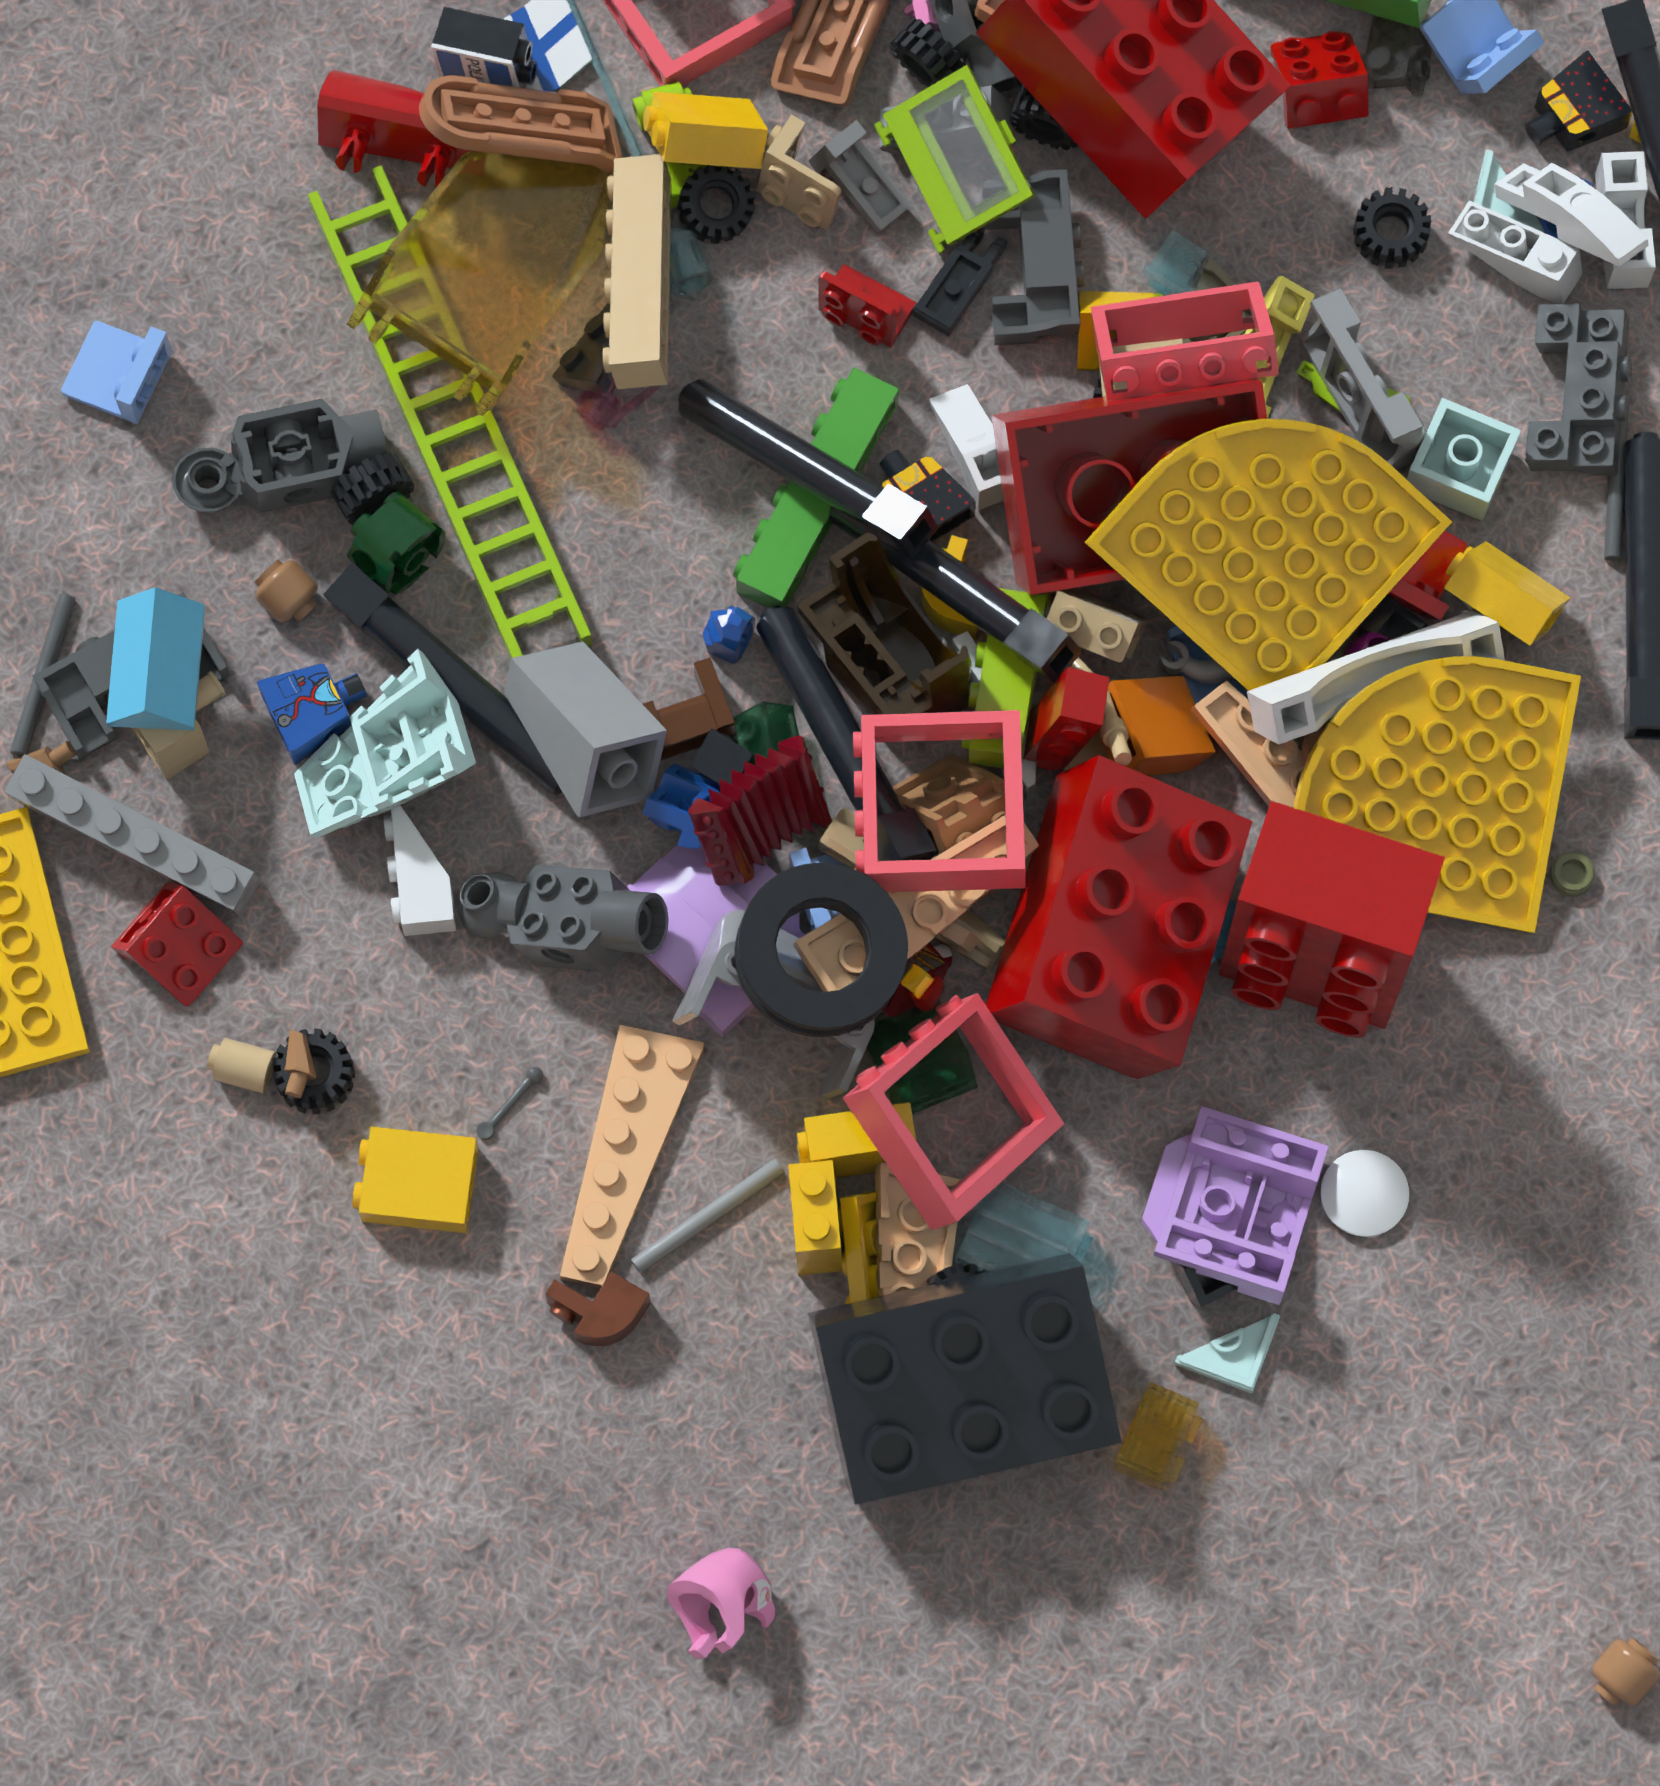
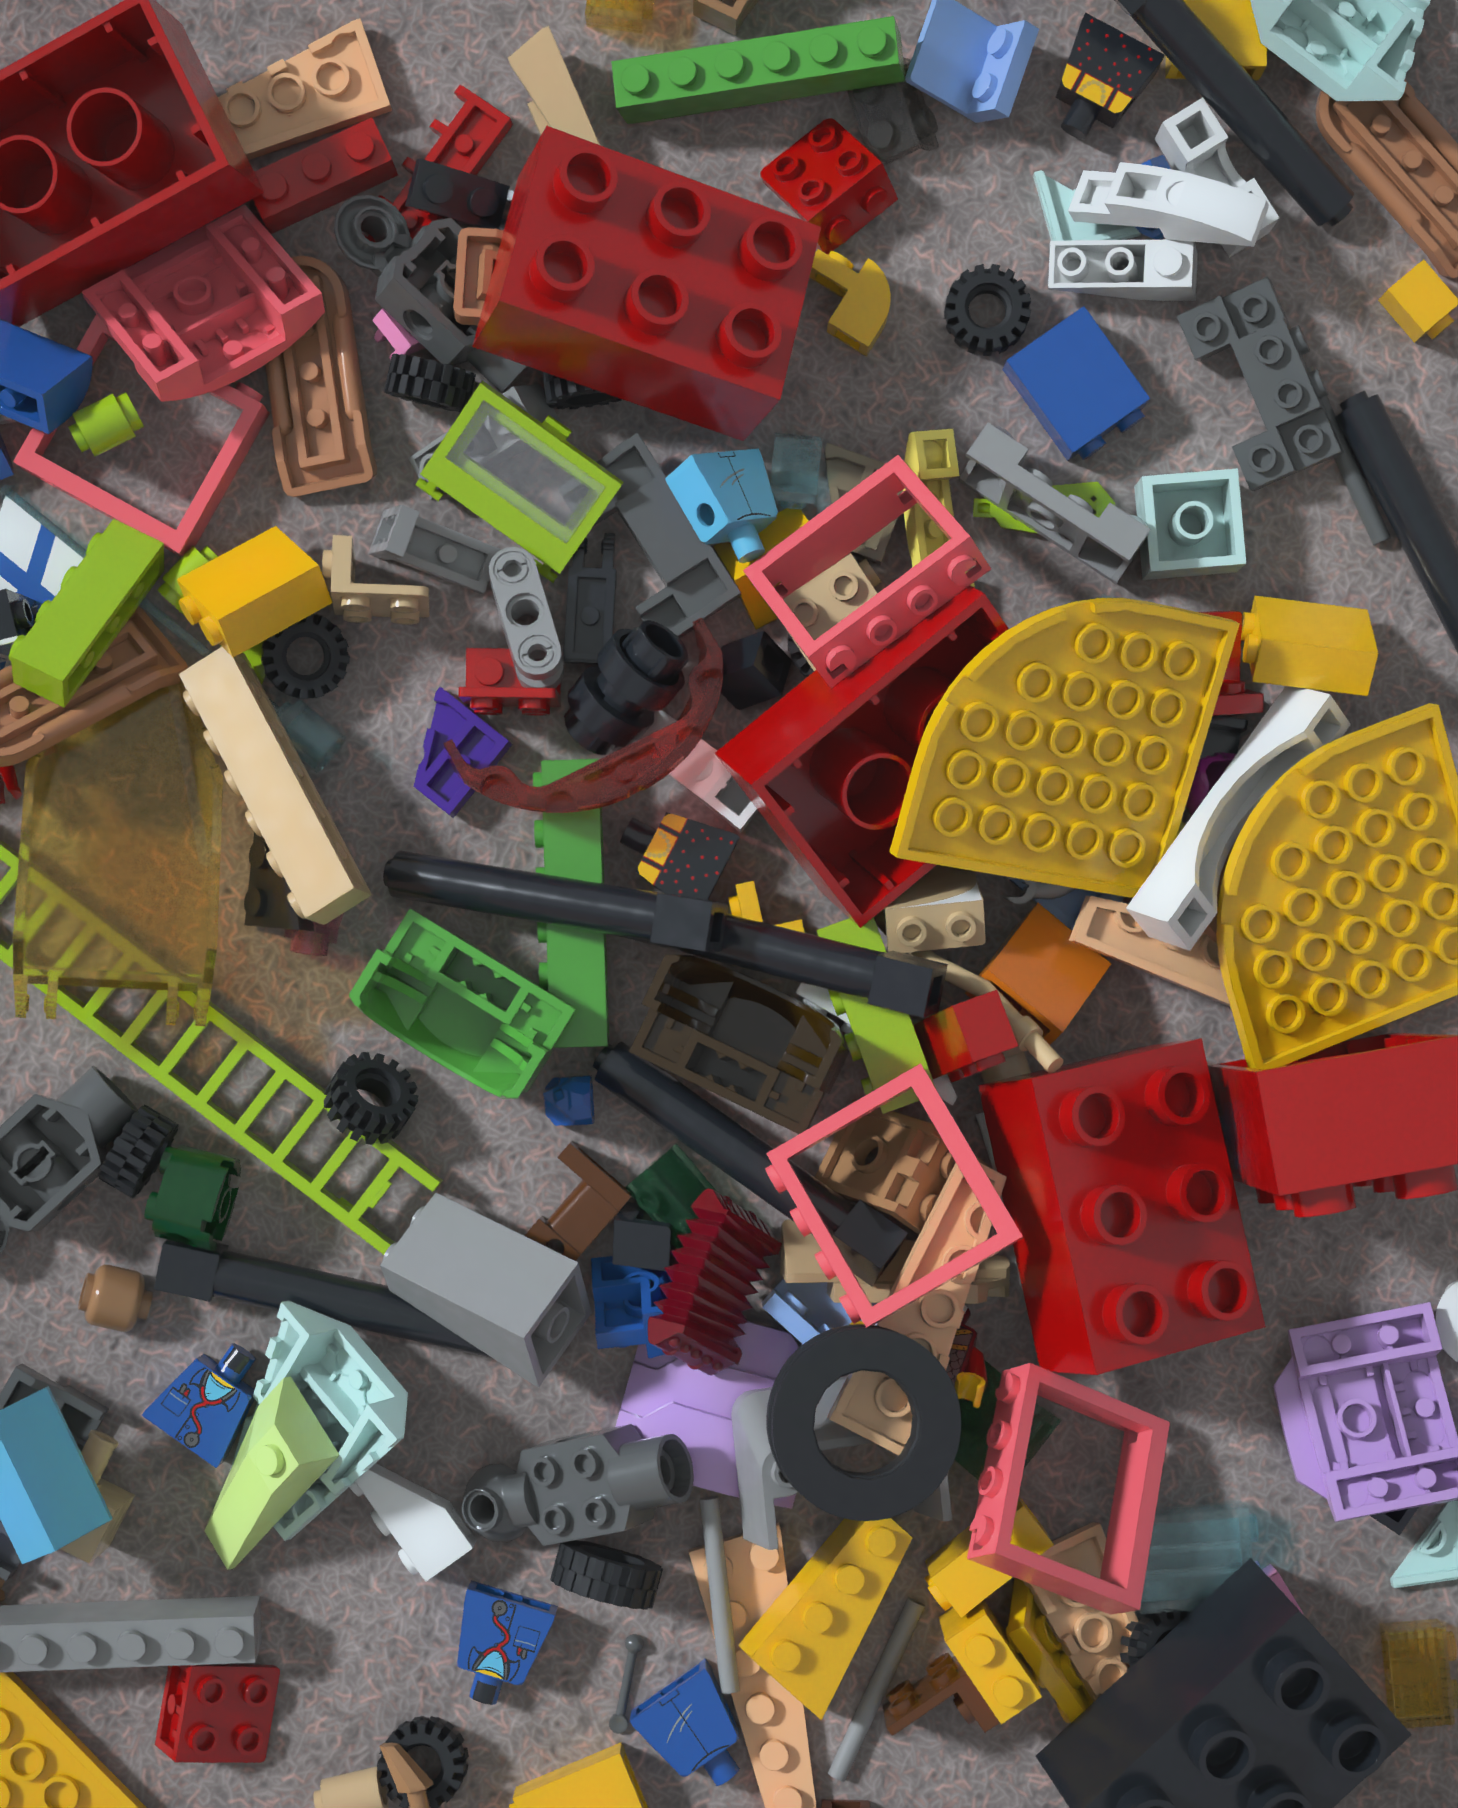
camera: 25 degrees left, 15 degrees up
(328, 774) = (272, 1470): none -> yellowish green wedge
(433, 1007) = (500, 1638): none -> blue torso
(544, 1155) = (691, 1725): none -> blue torso
(547, 993) = (606, 1574): none -> black tyre
(572, 79) = (86, 612): none -> lime brick
(575, 544) = (362, 1116): none -> black tyre
(626, 1063) = (719, 1595): none -> light grey bar
(687, 524) = (461, 1007): none -> bright green piece
(698, 1119) = (826, 1609): none -> yellow wedge
(767, 1220) = (944, 1679): none -> reddish brown bracket
(790, 337) = (475, 741): none -> dark purple wing
(902, 391) = (622, 771): none -> clear red windscreen
(903, 257) = (520, 593): none -> light grey piece
(966, 338) = (634, 677): none -> black piece
(1054, 386) = (753, 670): none -> black panel
(1108, 250) = (726, 499): none -> medium azure torso
(1297, 172) = (864, 303): none -> yellow brick
(1431, 316) = (1077, 385): none -> blue brick

